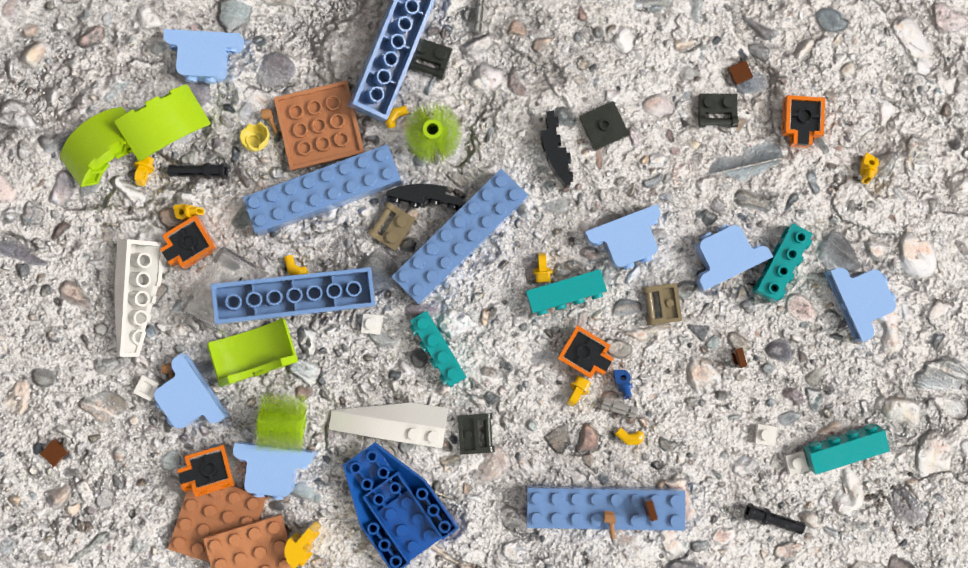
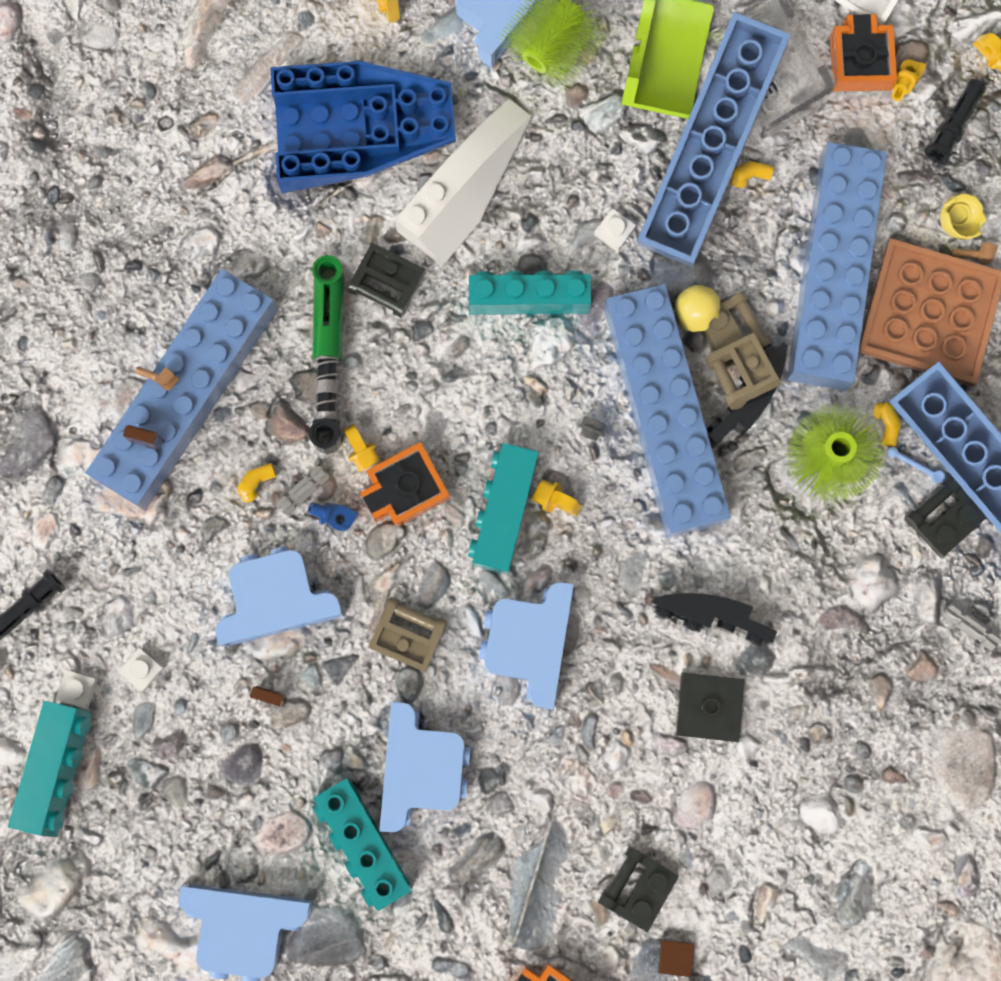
camera: 120 degrees right, 5 degrees down
(392, 252) = (697, 307): none -> light yellow hair
(409, 75) = (936, 476): none -> light blue hinge
(411, 202) = (752, 366): none -> dark tan plate
(492, 271) = (592, 428): none -> dark grey plate
(535, 441) = (327, 350): none -> piece
(686, 386) = (273, 598): none -> light blue brick

